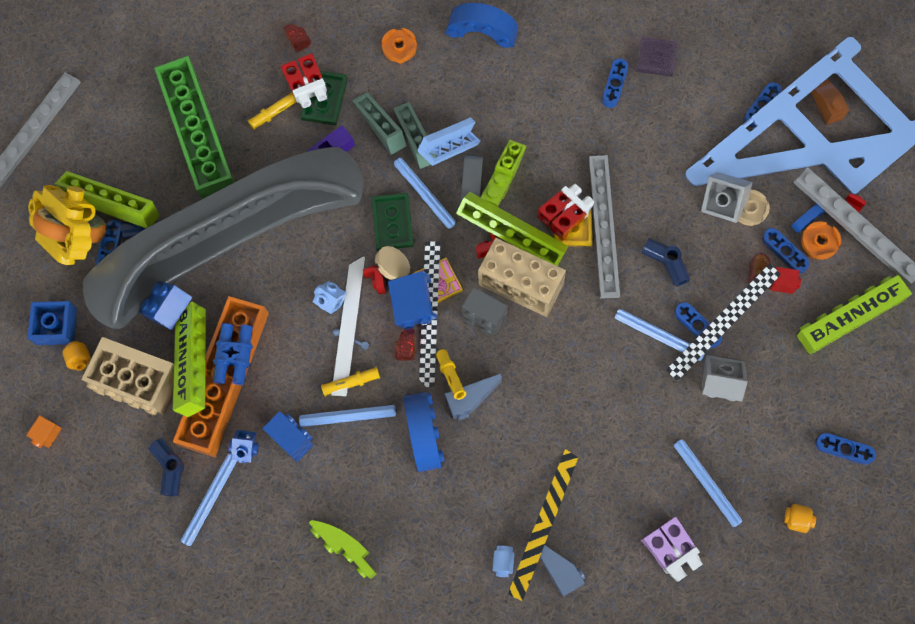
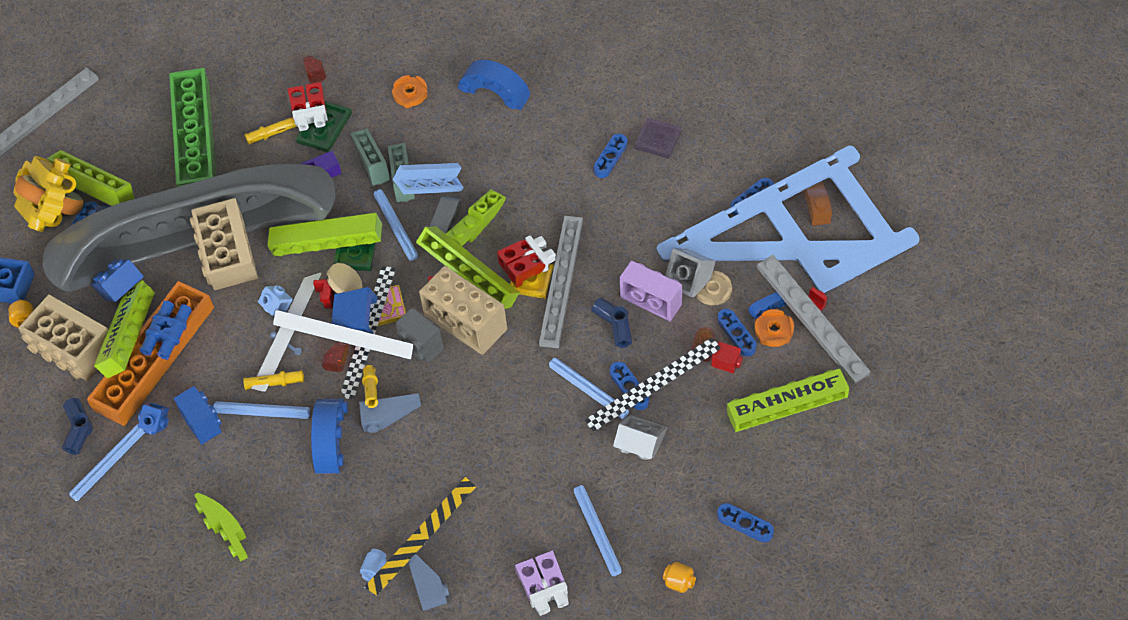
camera: 10 degrees right, 15 degrees down
(267, 236) = (223, 244): none -> tan brick
(360, 218) = (325, 234): none -> lime brick
(409, 324) = (343, 334): none -> white sticker
(697, 223) = (651, 290): none -> lavender brick

